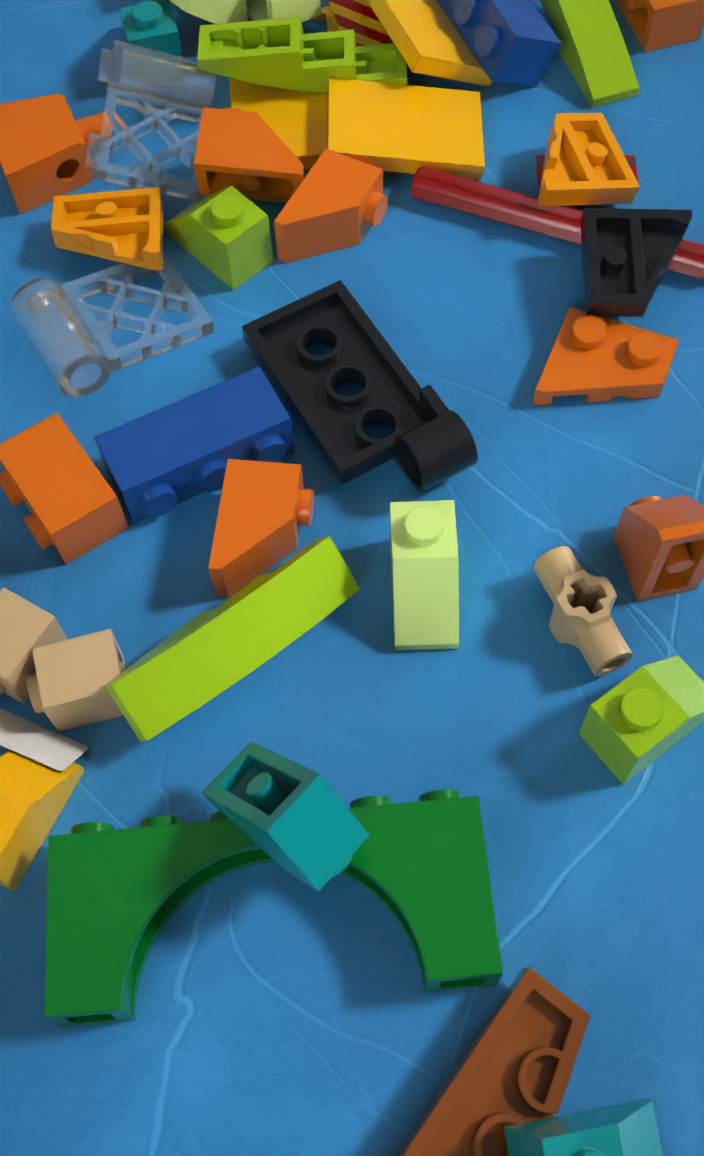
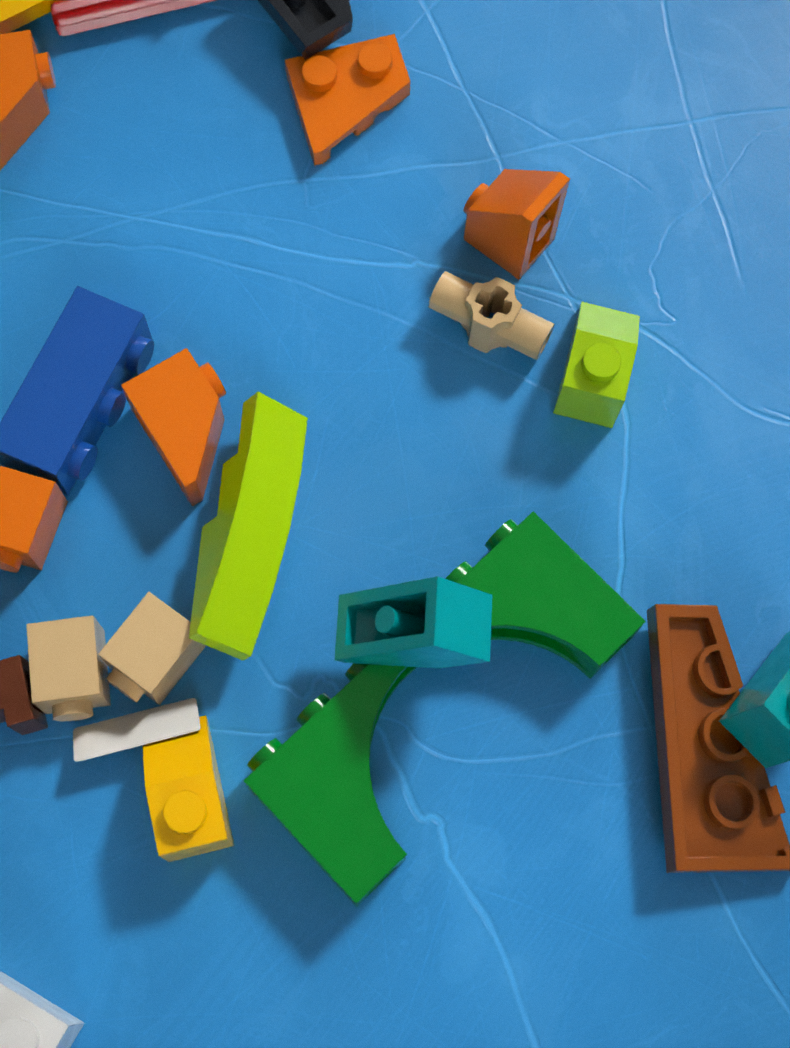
camera: 45 degrees left, 10 degrees up
(424, 575) = (351, 370): yellowish green slope -> none
(427, 436) = (261, 253): black hinge -> none

